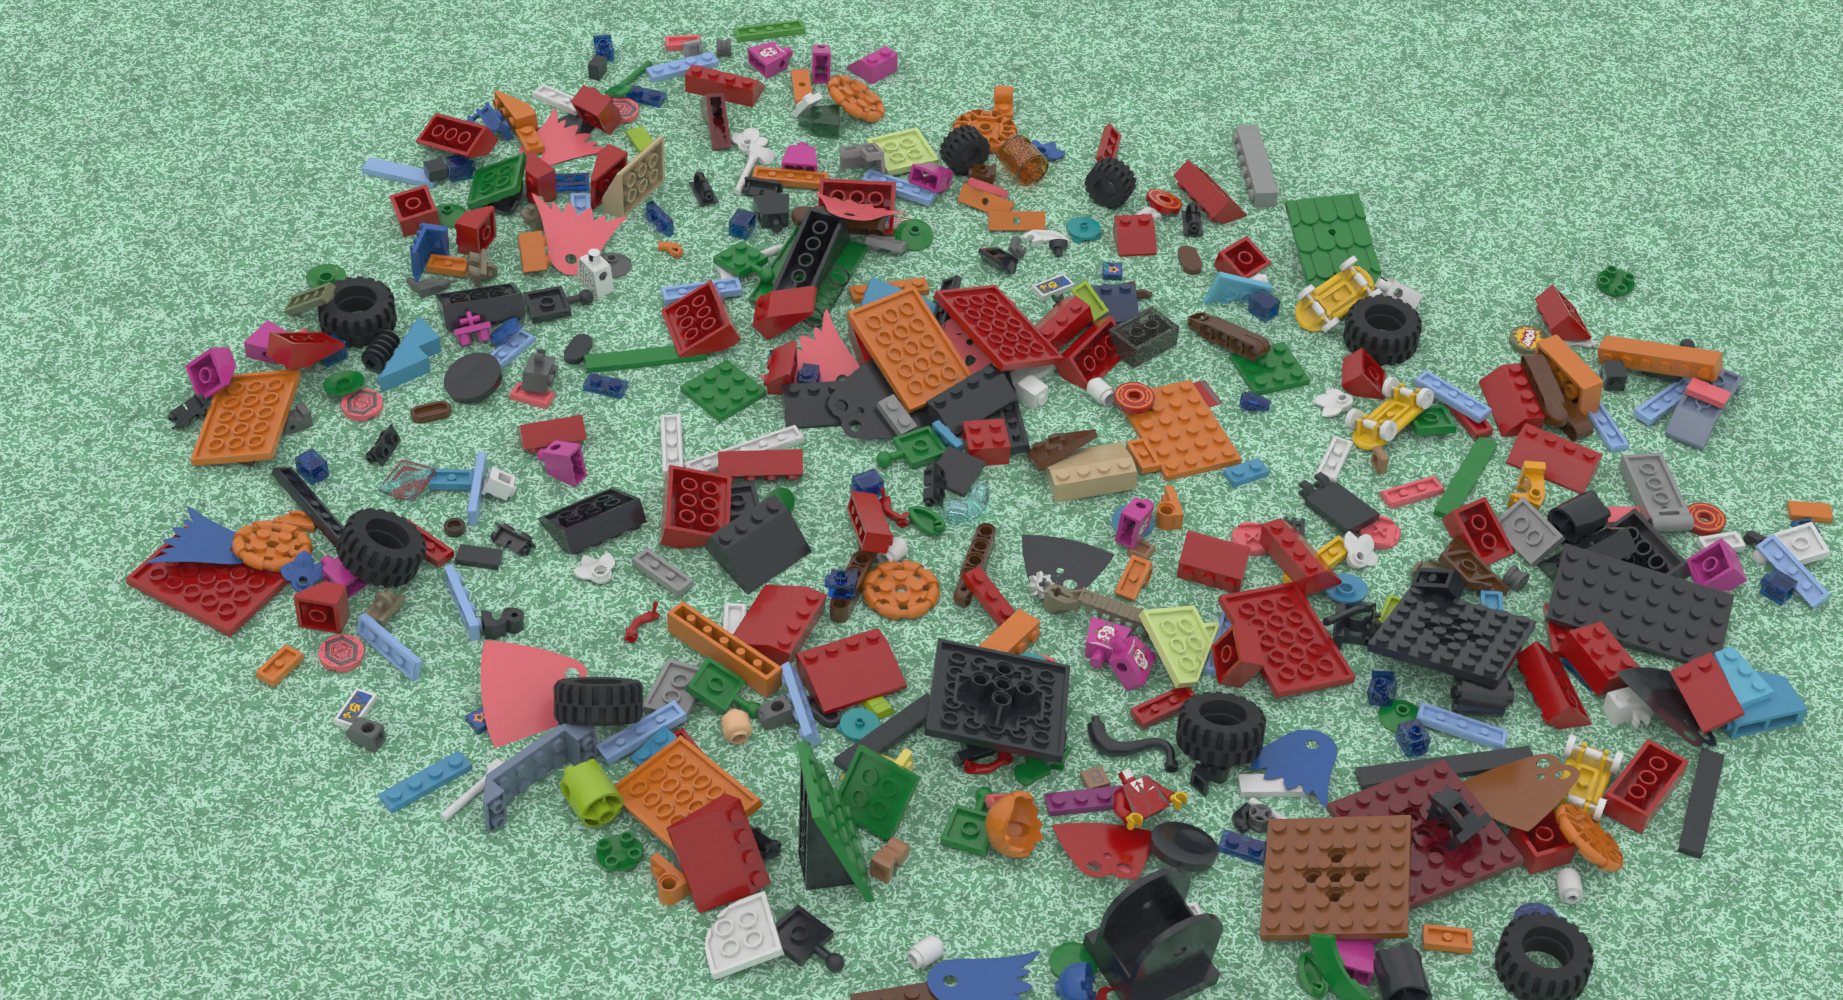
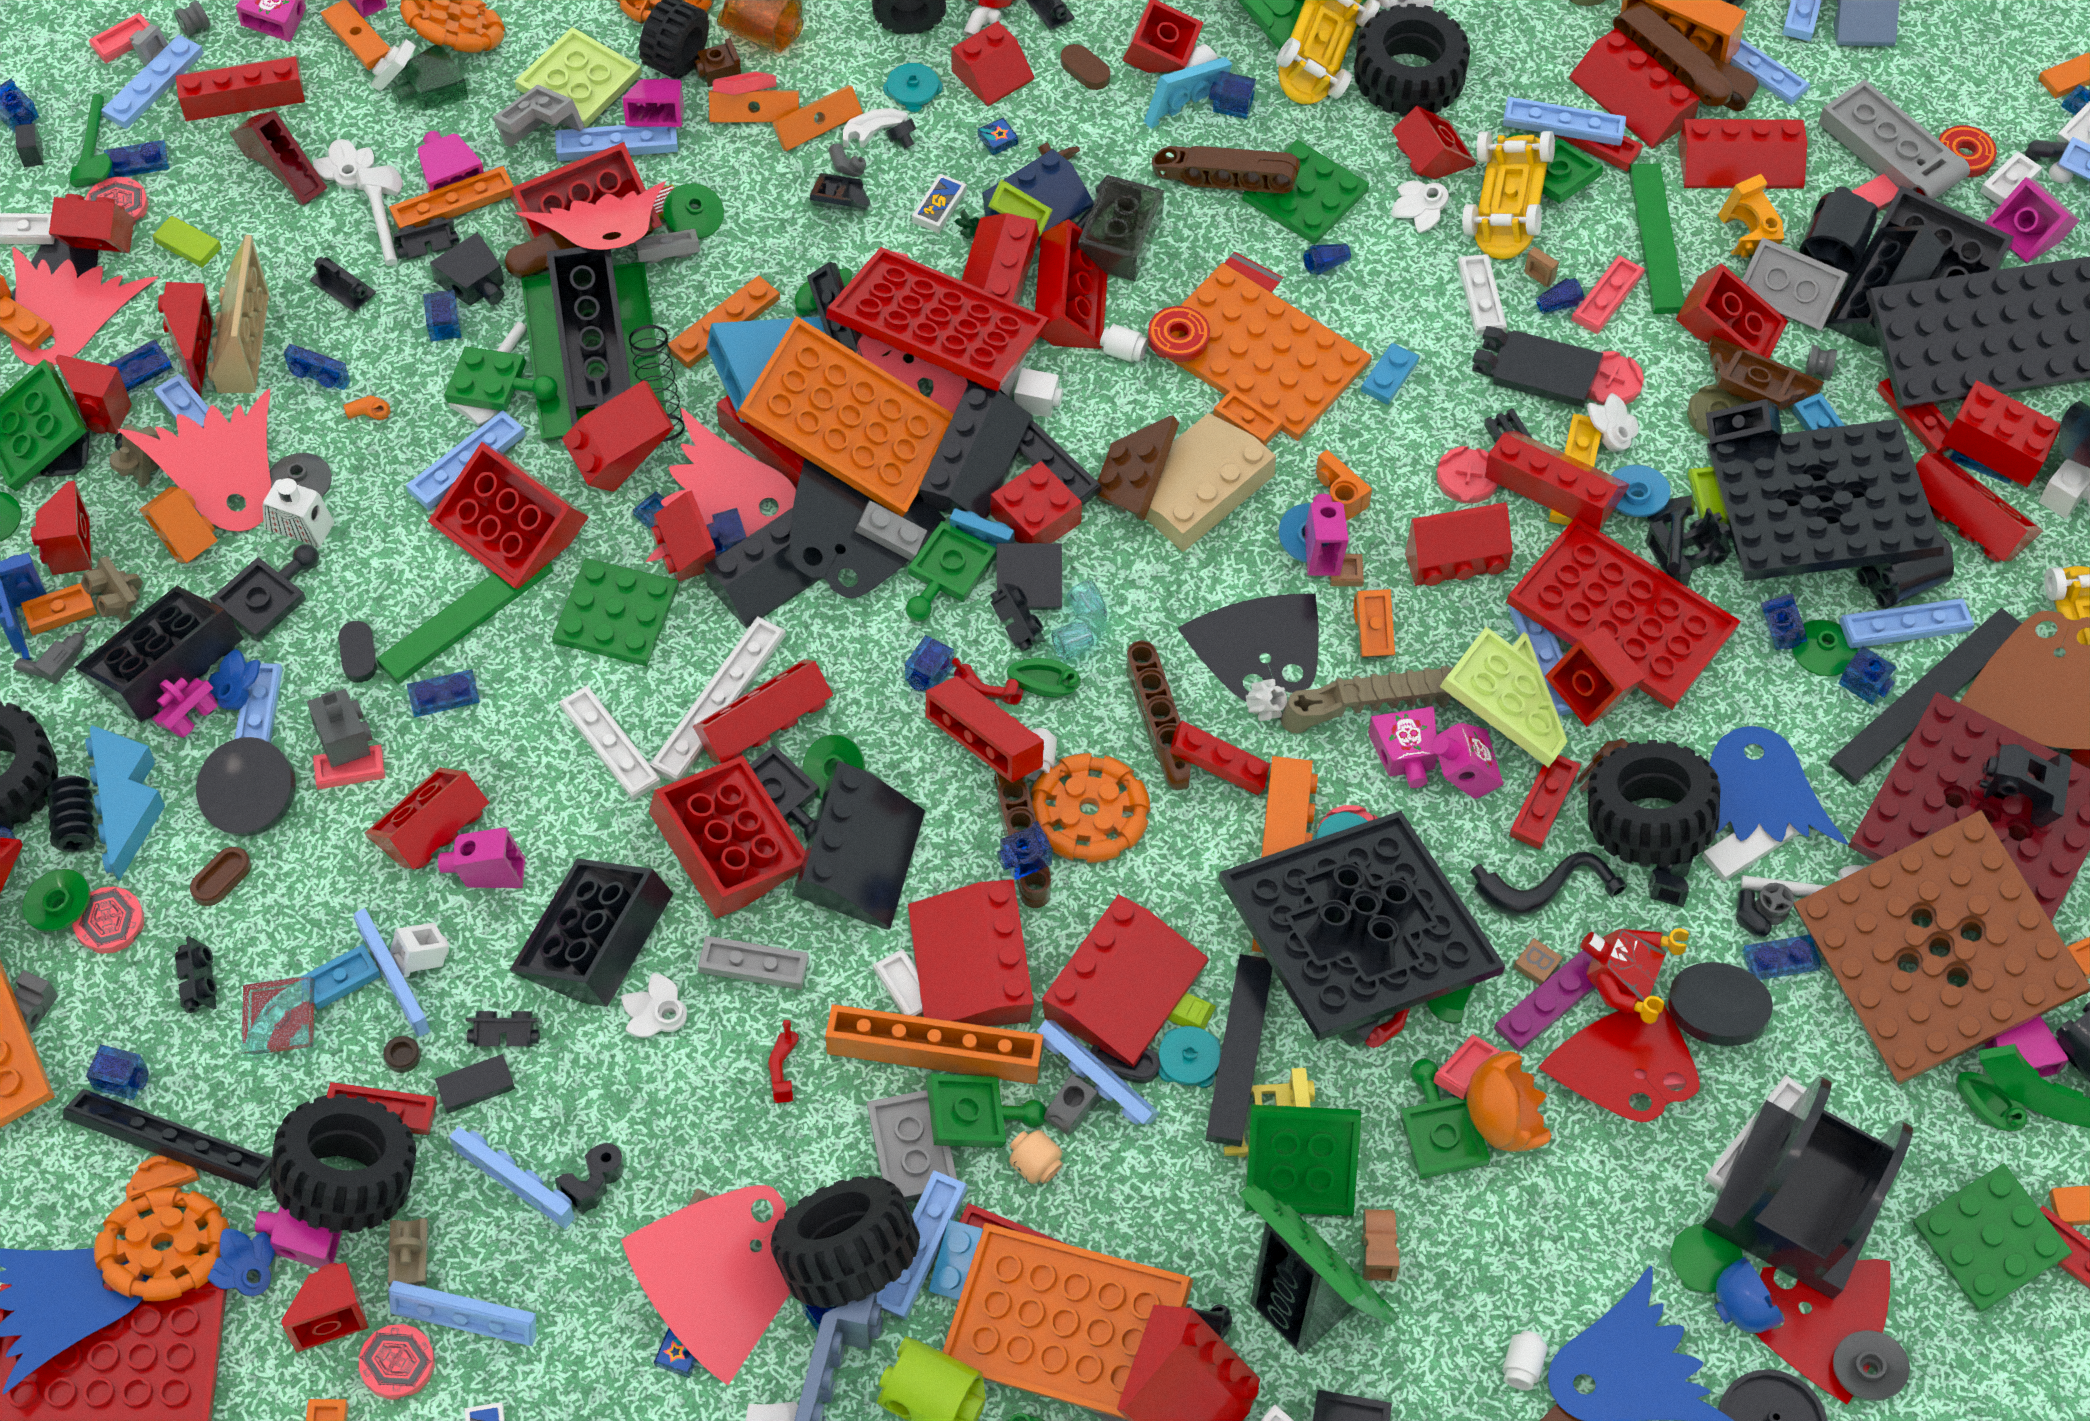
camera: 30 degrees left, 15 degrees up
(1379, 479) = (1561, 296): none -> clear blue cone

